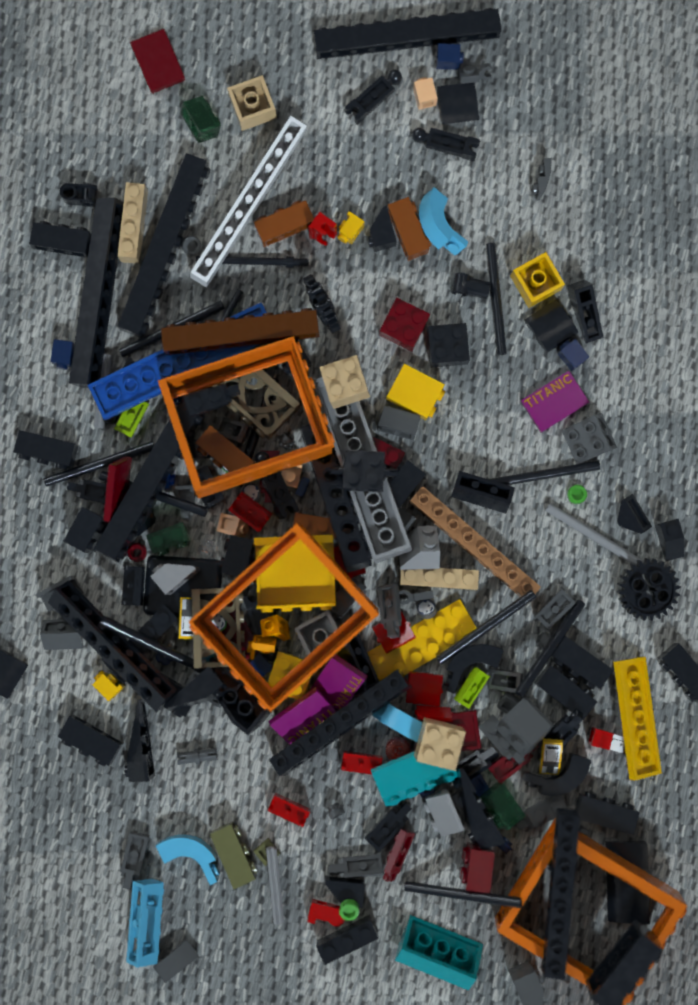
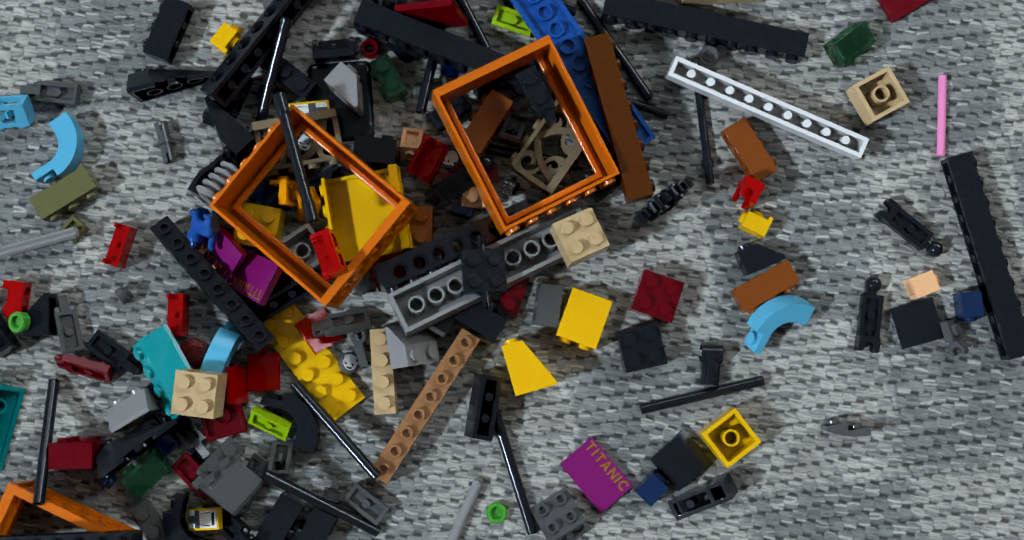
camera: 85 degrees right, 0 degrees up
(197, 629) = (283, 112): none -> black piece
(246, 704) = (217, 181): none -> light grey piece
(276, 51) = (941, 115): none -> bright pink bar
(284, 724) = (203, 226): none -> blue animal
(333, 604) = (328, 254): none -> red hinge
(454, 450) = (524, 368): none -> yellow slope

